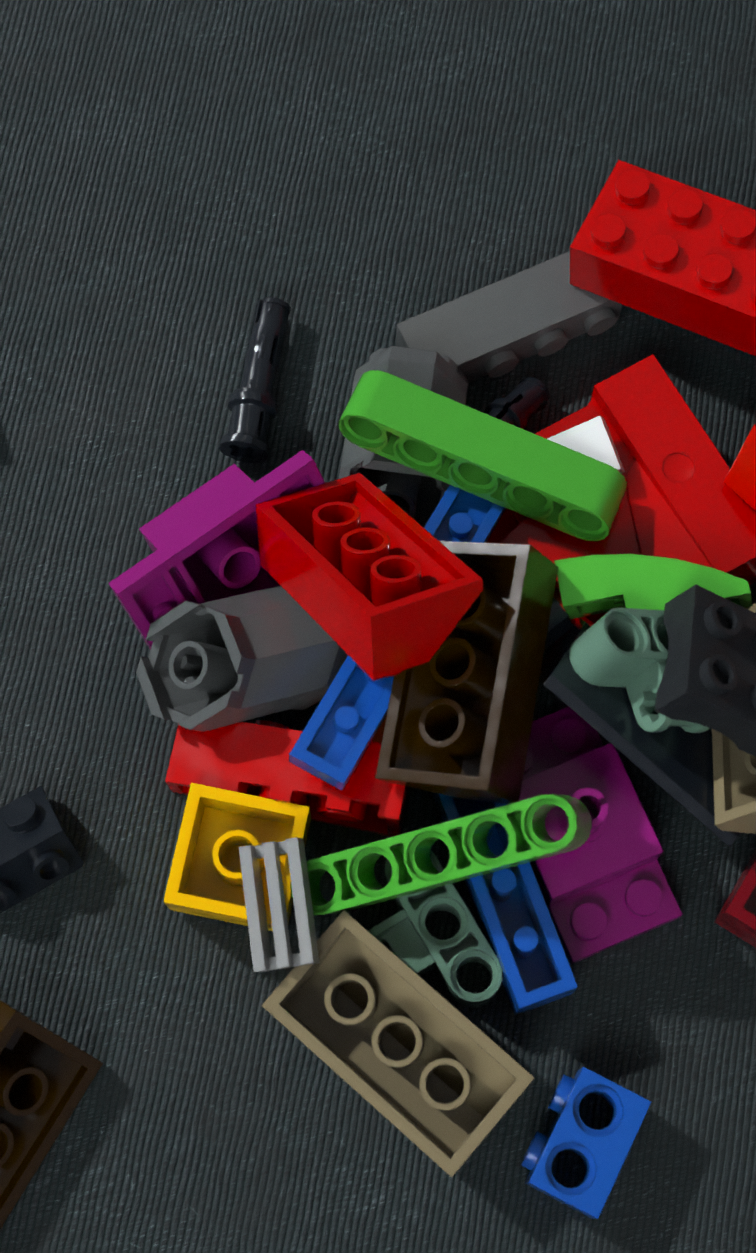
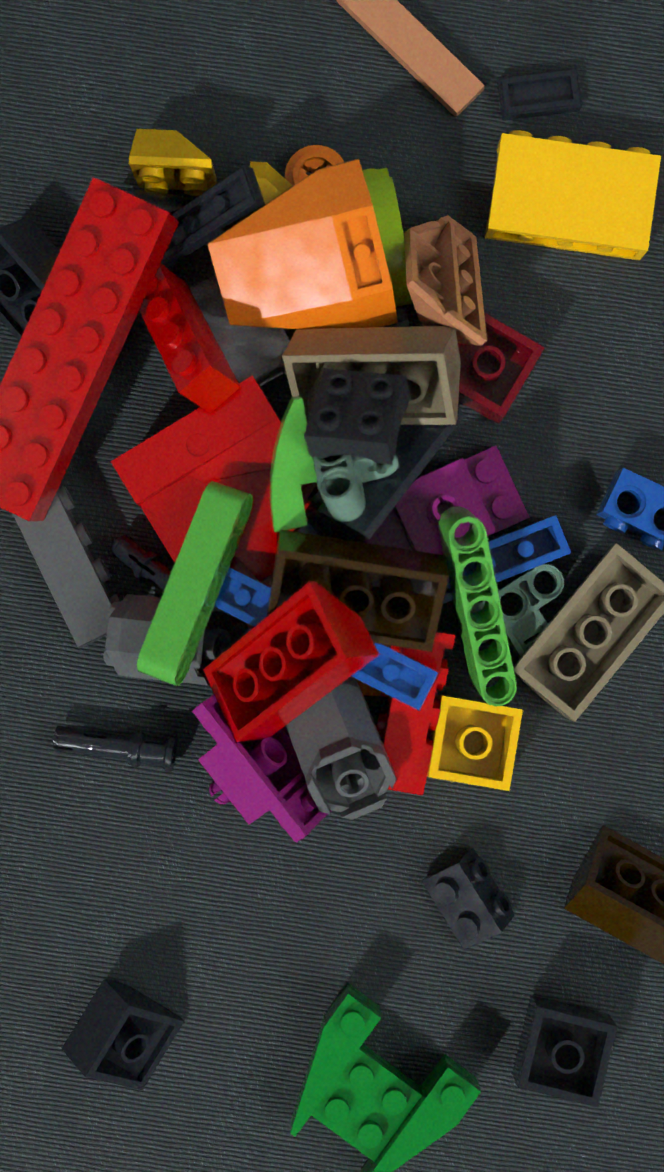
camera: 90 degrees left, 15 degrees up
(256, 910) = (514, 728): light grey tile -> none
(592, 440) = (182, 507): white tile -> none

